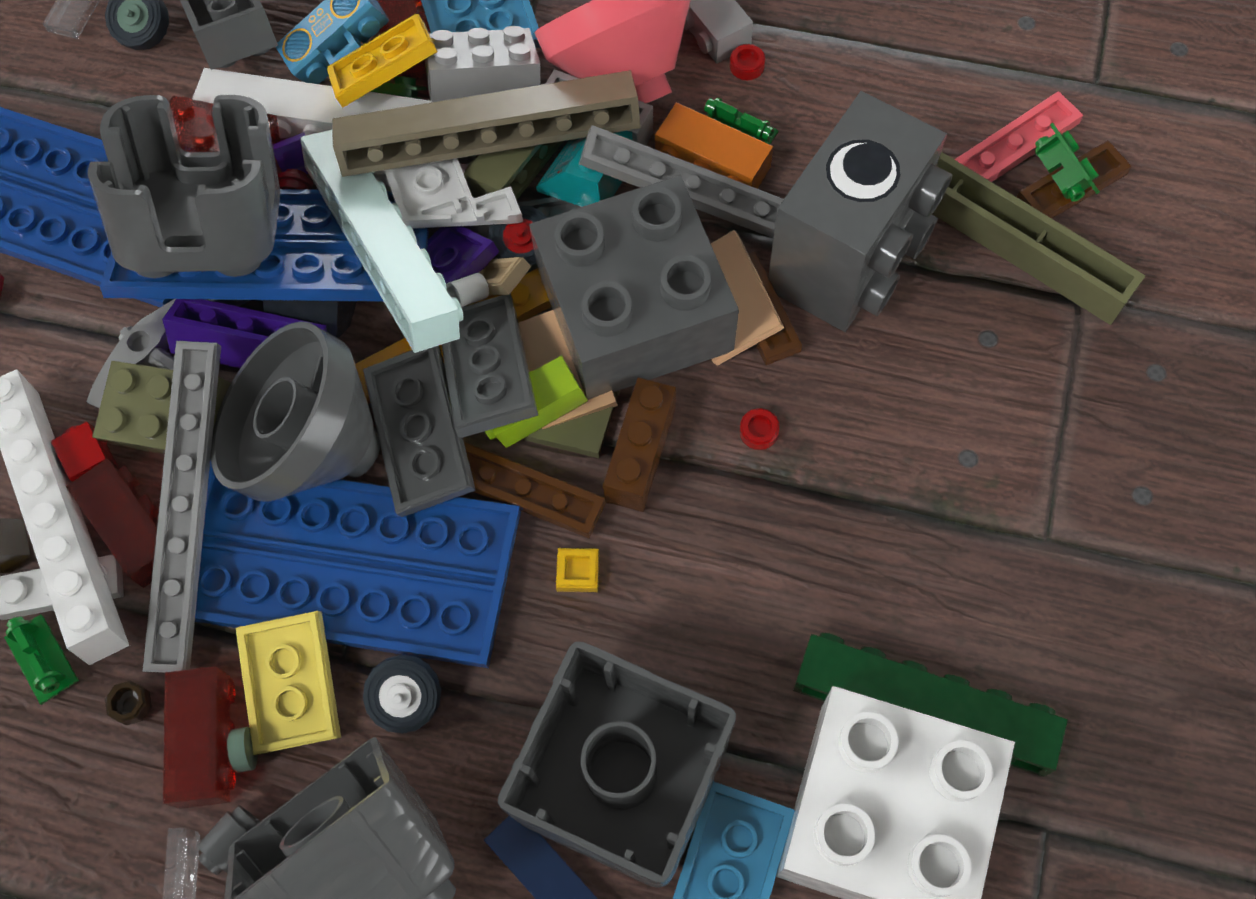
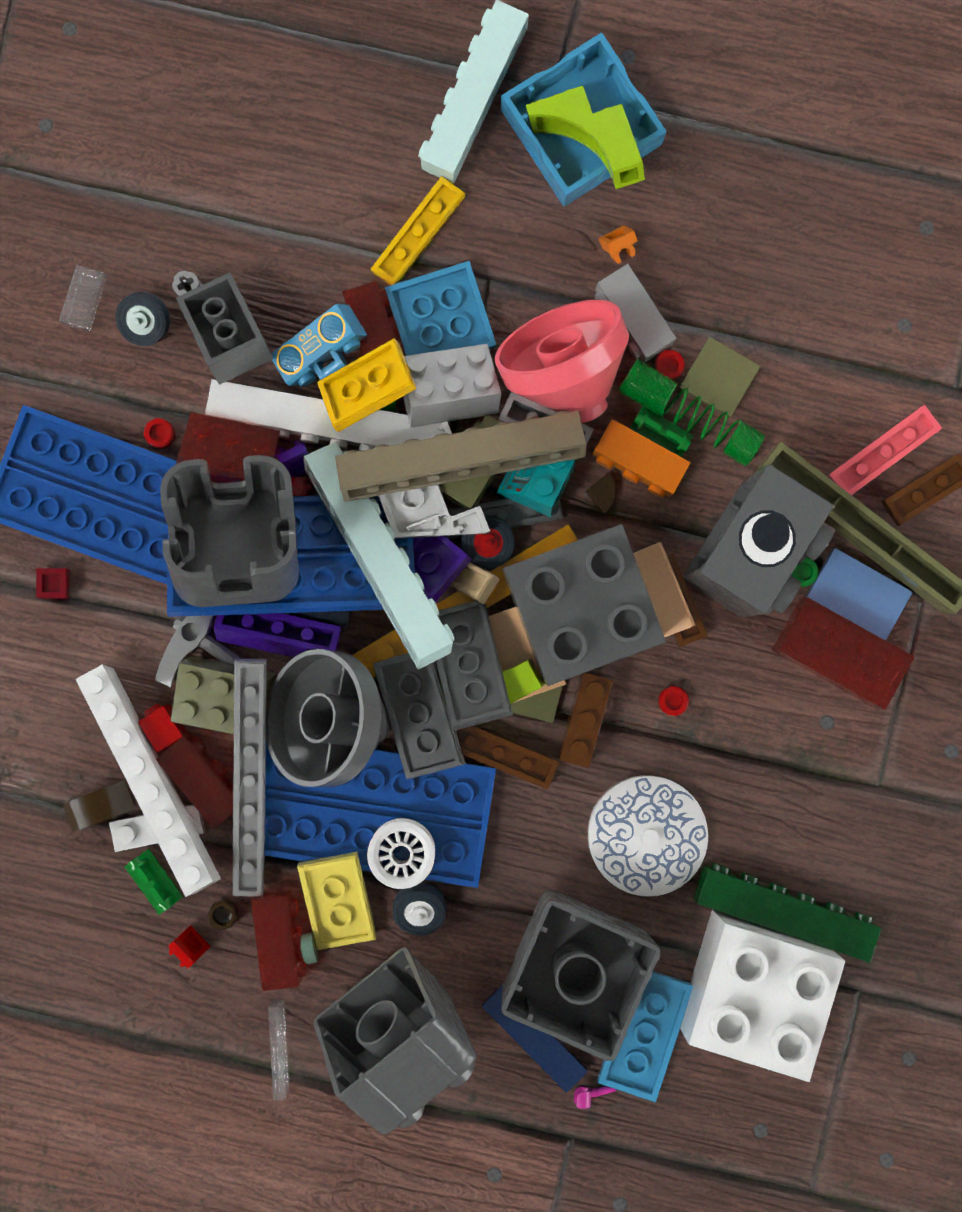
camera: 10 degrees left, 20 degrees up
(71, 746) = (188, 947): none -> red tile
(221, 836) = (307, 1008): dark grey brick -> none
(374, 574) = (375, 859): none -> white wheel
(469, 289) = (449, 597): white hinge -> none
(577, 570) = (539, 812): yellow tile -> none
(708, 190) = (623, 503): light grey plate -> none
(727, 602) = (647, 835): none -> white dish
(731, 79) = (653, 391): none -> green piece
(807, 72) = (719, 376): none -> olive tile
(921, 277) = (806, 572): none -> green tile
(981, 364) = (842, 653): none -> clear red brick
(996, 304) = (859, 593): none -> medium blue tile
(1076, 174) = (922, 469): green hinge -> none

